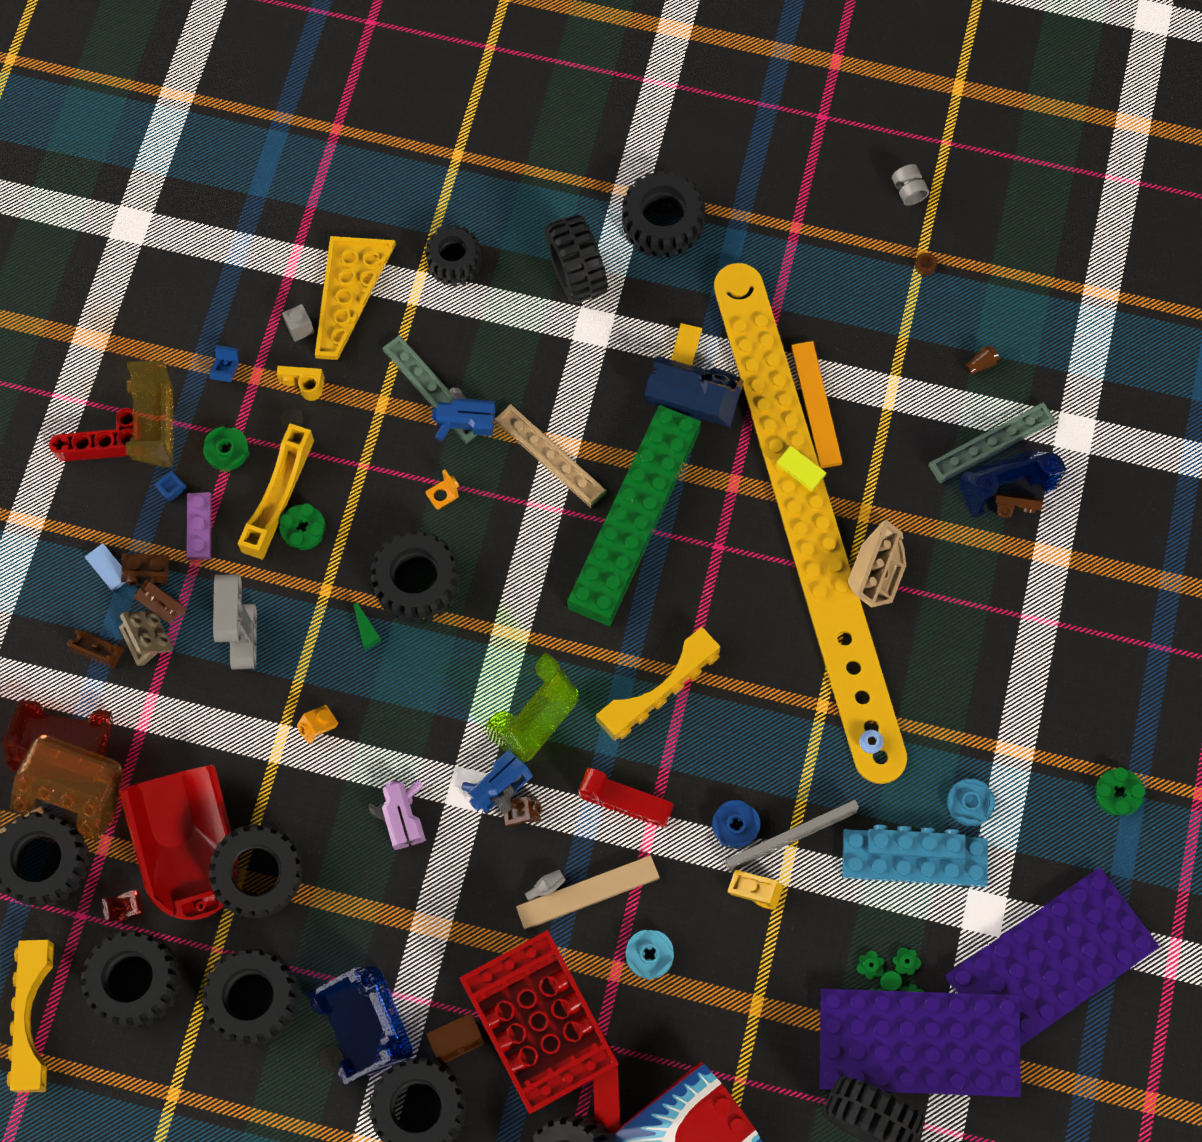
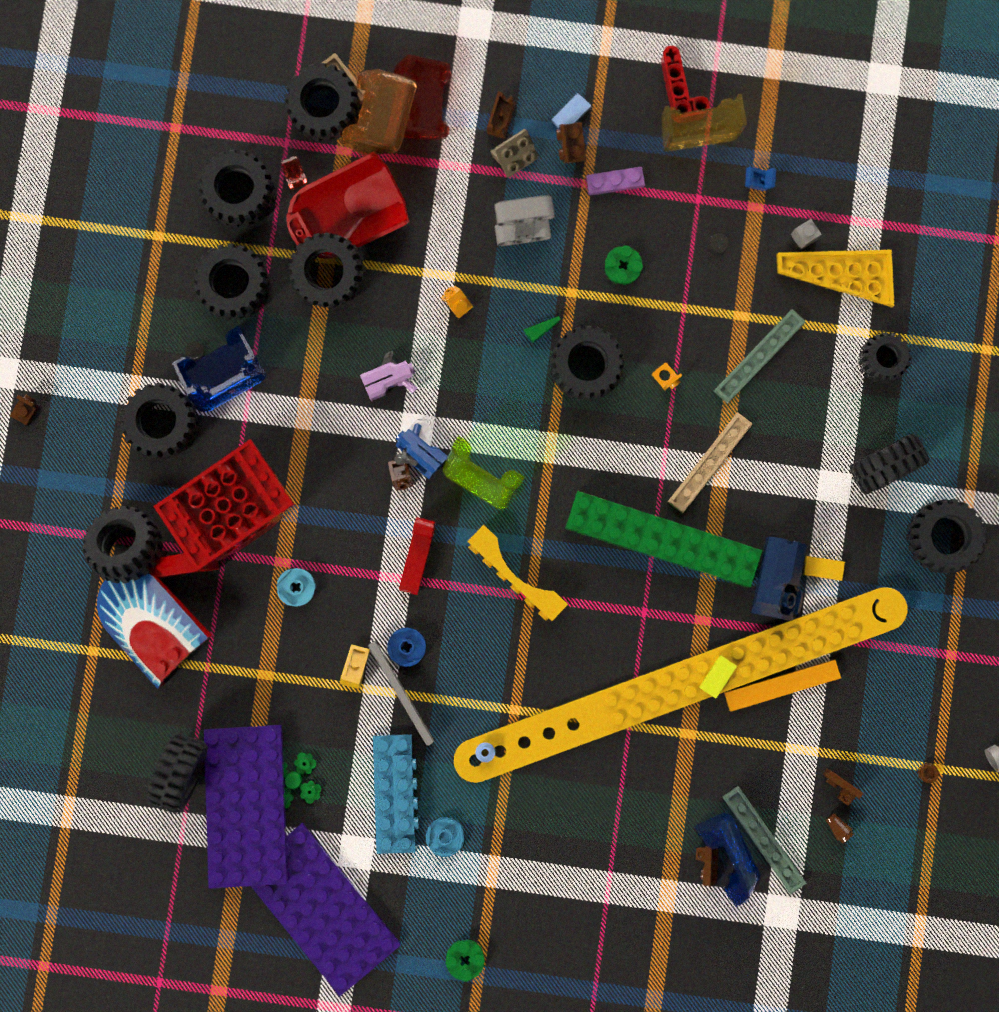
camera: 80 degrees right, 15 degrees up
(33, 964) = (166, 123): yellow arch -> none
(159, 601) = (544, 160): reddish brown bracket -> none
(170, 486) = (647, 152): blue tile -> none
(231, 459) = (685, 181): green plate -> none
(264, 522) = (676, 246): yellow arch -> none
(303, 376) = (755, 246): yellow plate -> none
(455, 1038) = (215, 441): reddish brown hinge -> none
(464, 414) = (735, 385): blue piece -> none
(546, 885) = (343, 500): light grey piece -> none
(587, 892) = (341, 533): tan tile -> none
(879, 566) = (636, 748): tan wedge -> none
(940, 346) = (848, 791): none -> reddish brown hinge

